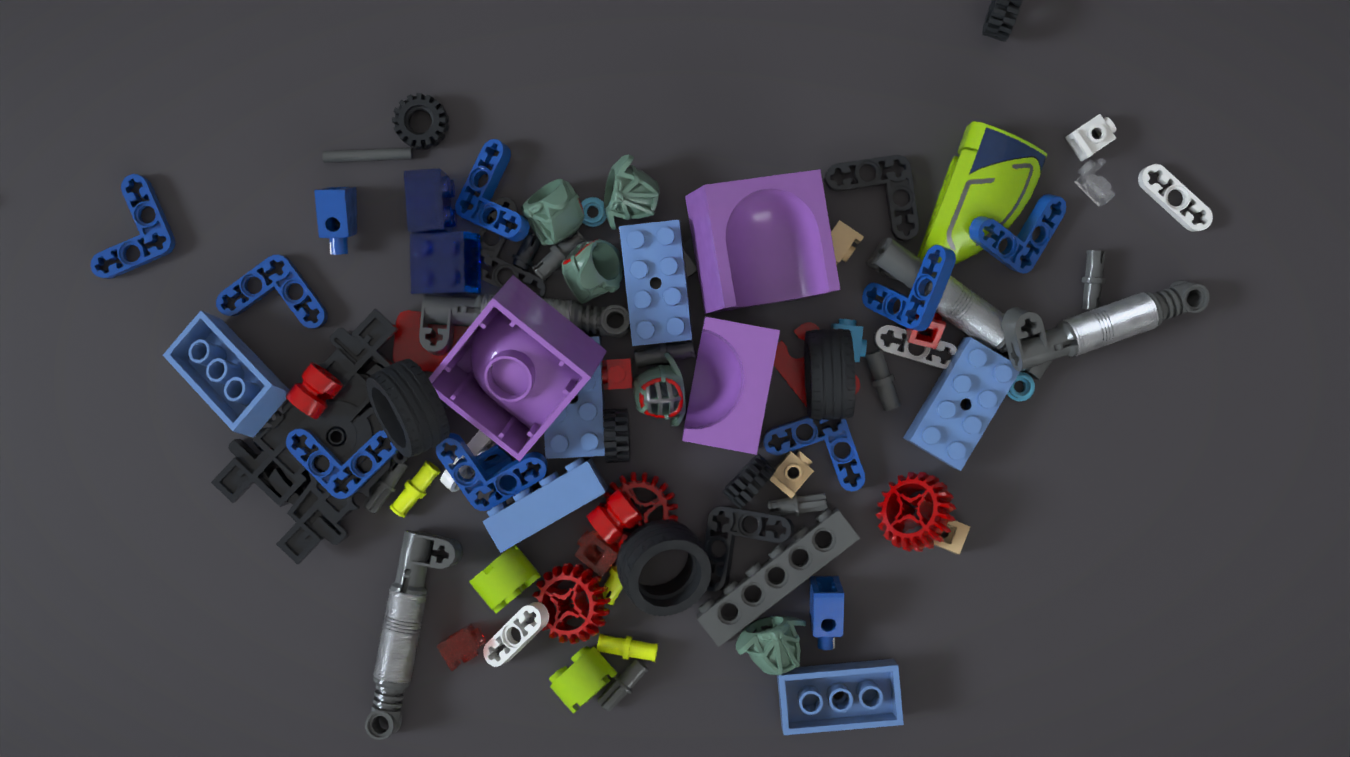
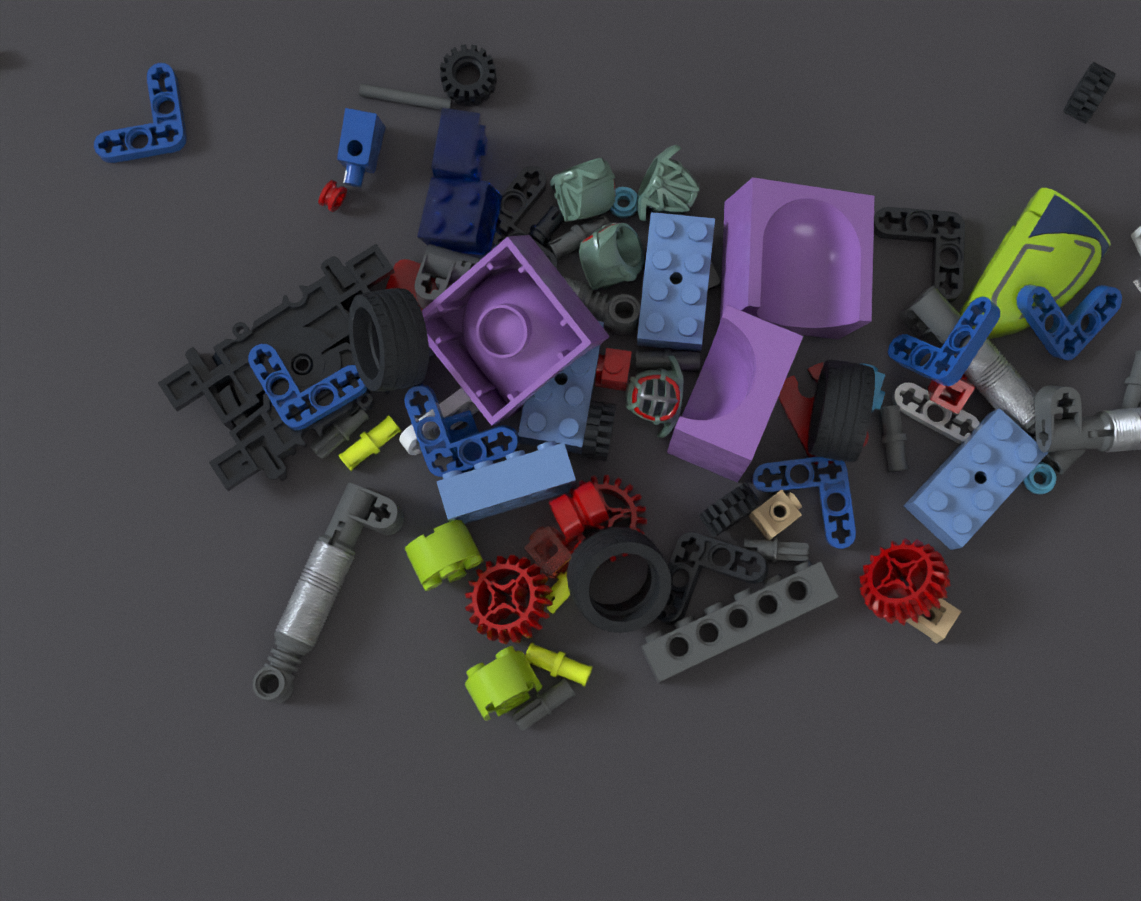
camera: 15 degrees right, 10 degrees down
(226, 374) = (205, 275): medium blue brick -> none
(281, 284) = (282, 201): blue beam -> none
(314, 390) = (293, 307): red wheel -> none
(323, 267) = (332, 196): none -> red bush
(461, 645) = (378, 620): clear red brick -> none
(482, 204) = (537, 125): blue beam -> none
(527, 631) = (455, 619): white beam -> none
(773, 648) = (719, 693): sand green piece -> none
(826, 610) = (785, 656): blue torso -> none
(842, 239) = (884, 281): tan brick -> none
(868, 699) = (814, 772): medium blue brick -> none

